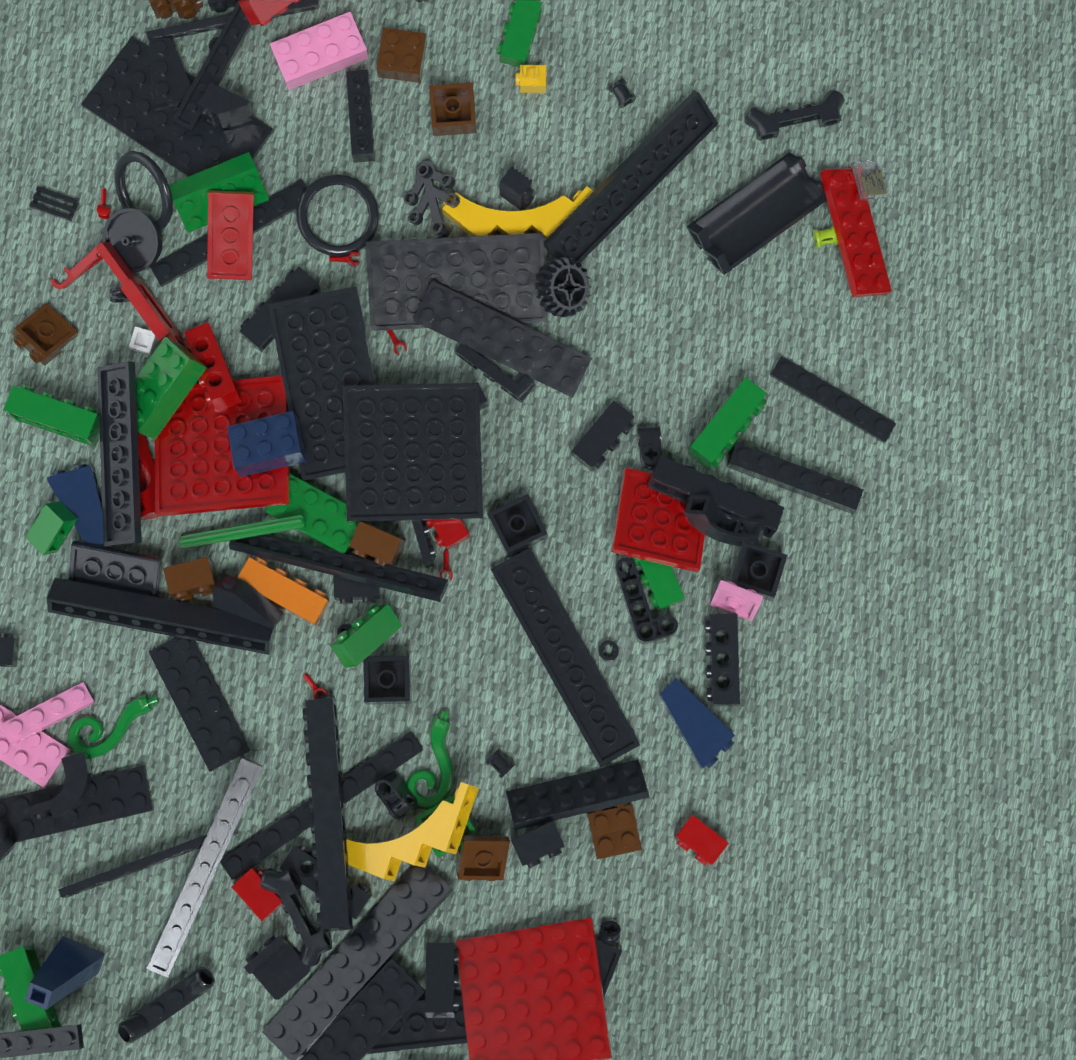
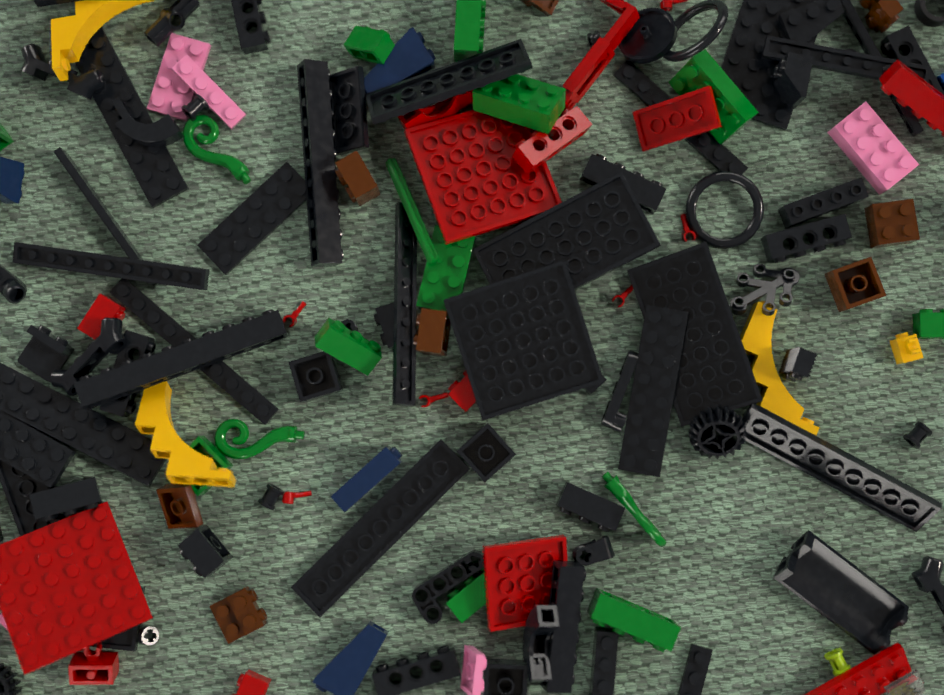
camera: 75 degrees right, 5 degrees up
(59, 732) = (195, 107): none -> black bush
(142, 341) = (559, 72): white plate -> none
(244, 601) = (350, 230): black slope -> none
(266, 444) = (492, 207): dark blue brick -> none
(283, 591) = (370, 261): orange brick -> none
(388, 110) = (835, 226): none -> black brick
(396, 796) = (217, 411): black piece -> none
(427, 551) = (440, 377): black plate -> none
(506, 745) = (288, 497): none -> red hand
(509, 654) = (367, 477): none -> dark blue slope
(577, 794) = (259, 574): black plate -> none
(602, 648) = (397, 558): black bush -> none
(605, 398) = (624, 497): none -> green plant
(626, 996) = (93, 667): none -> red brick

